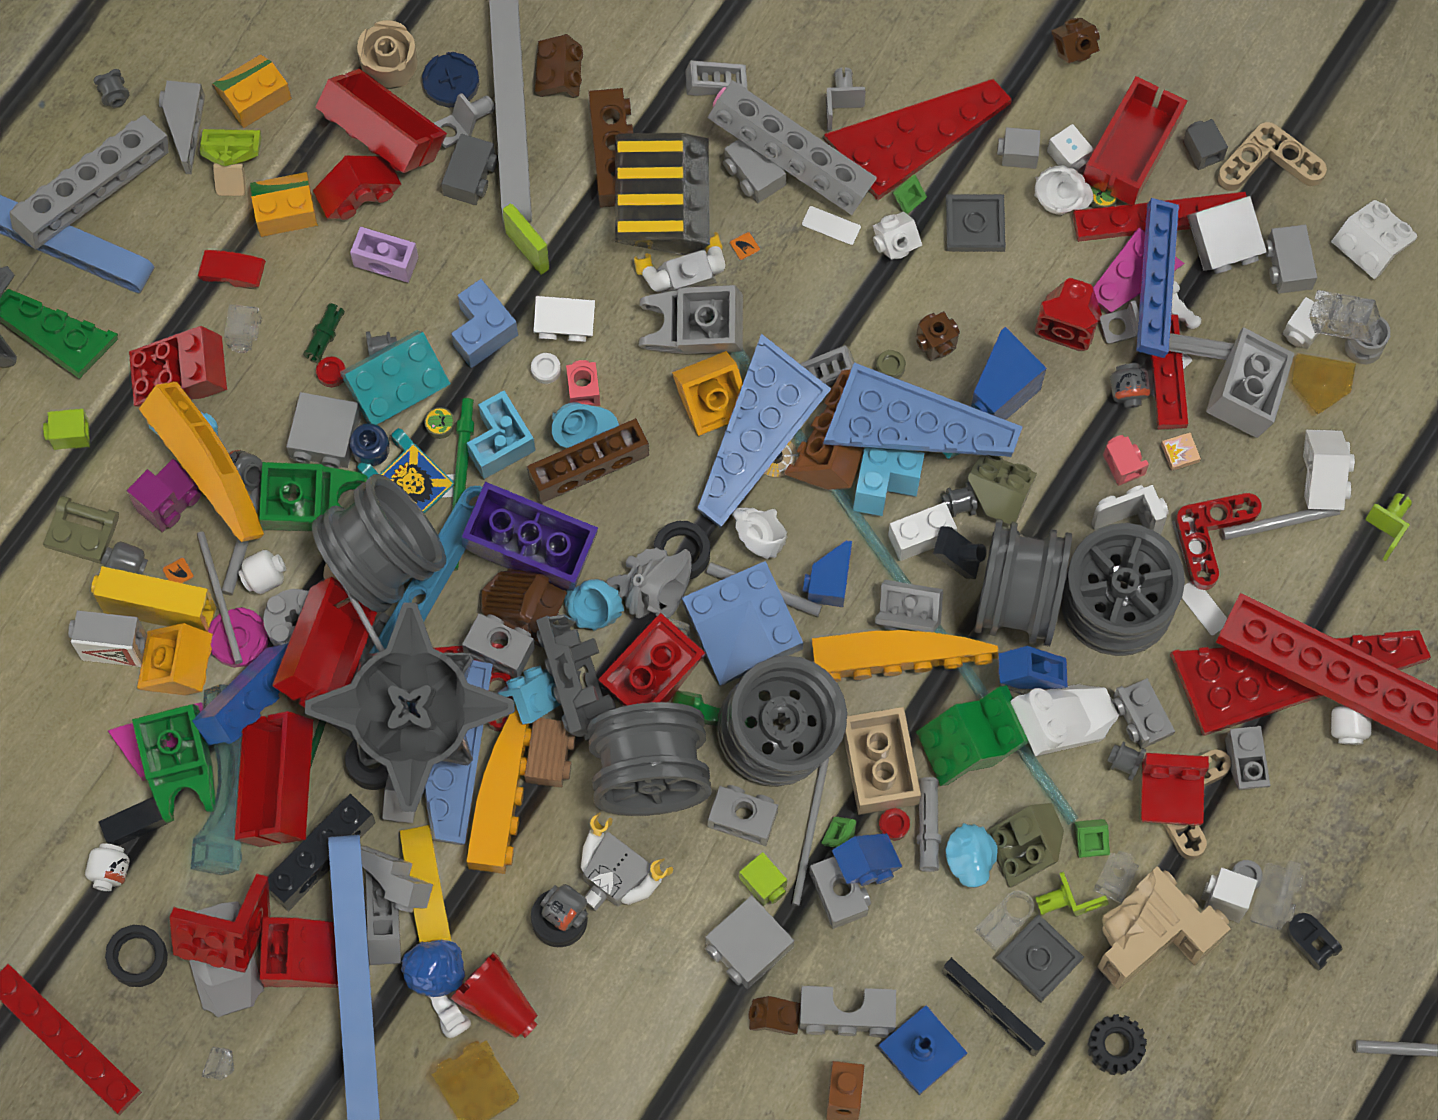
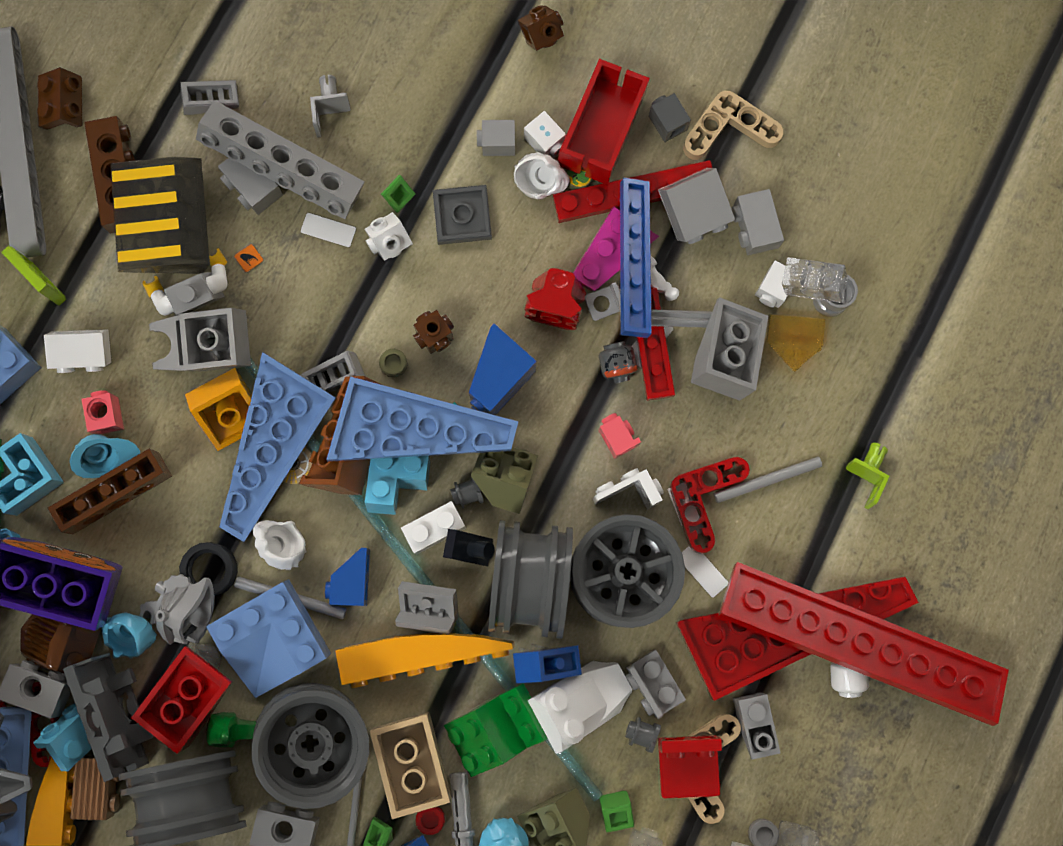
camera: 10 degrees left, 10 degrees up
(545, 368) = (68, 398): white tile -> none
(914, 136) = (394, 138): red wing -> none
(1180, 451) = (670, 420): tile -> none
(1328, 468) = (808, 427): white brick -> none
(1373, 237) = (832, 193): white bracket -> none

